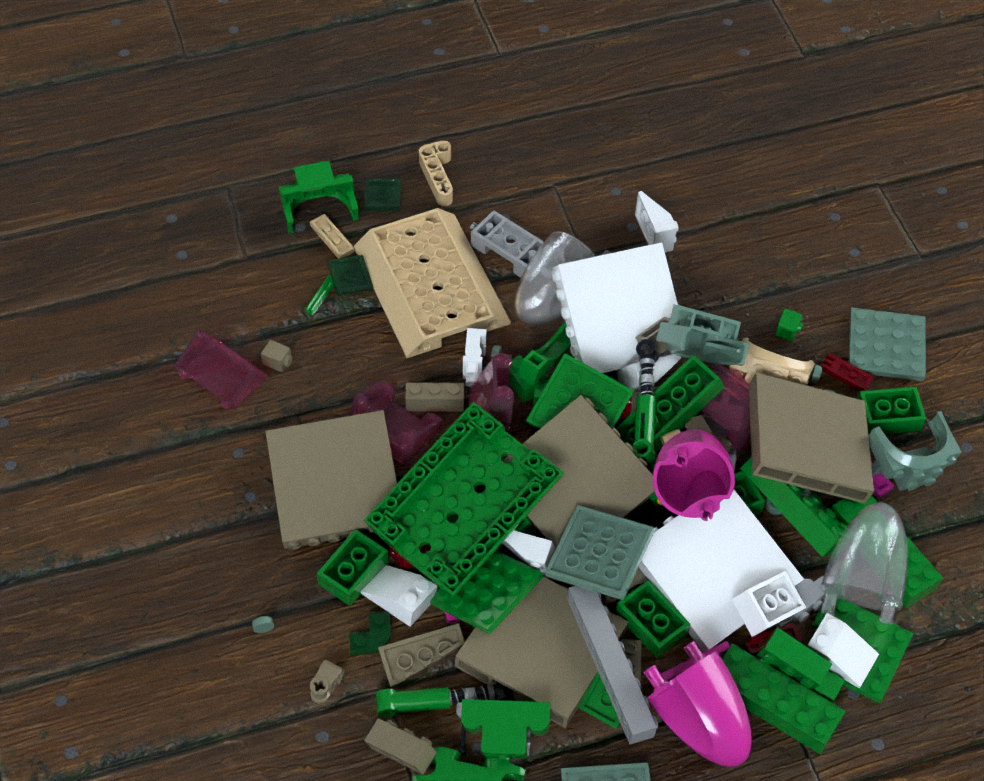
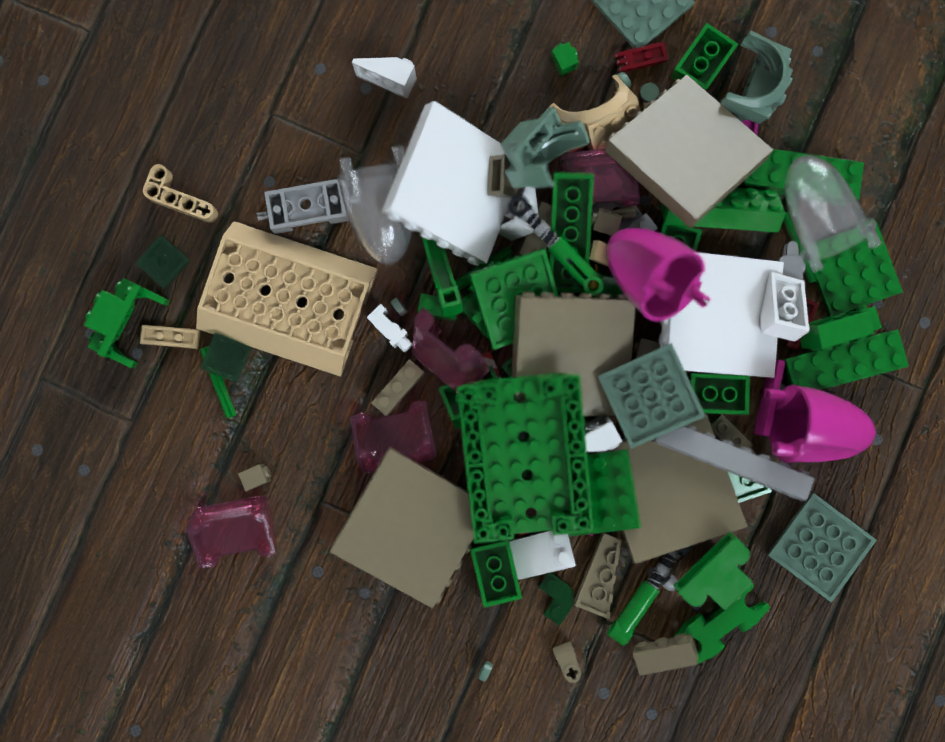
camera: 45 degrees left, 30 degrees up
(843, 648) = (851, 288): white slope -> none

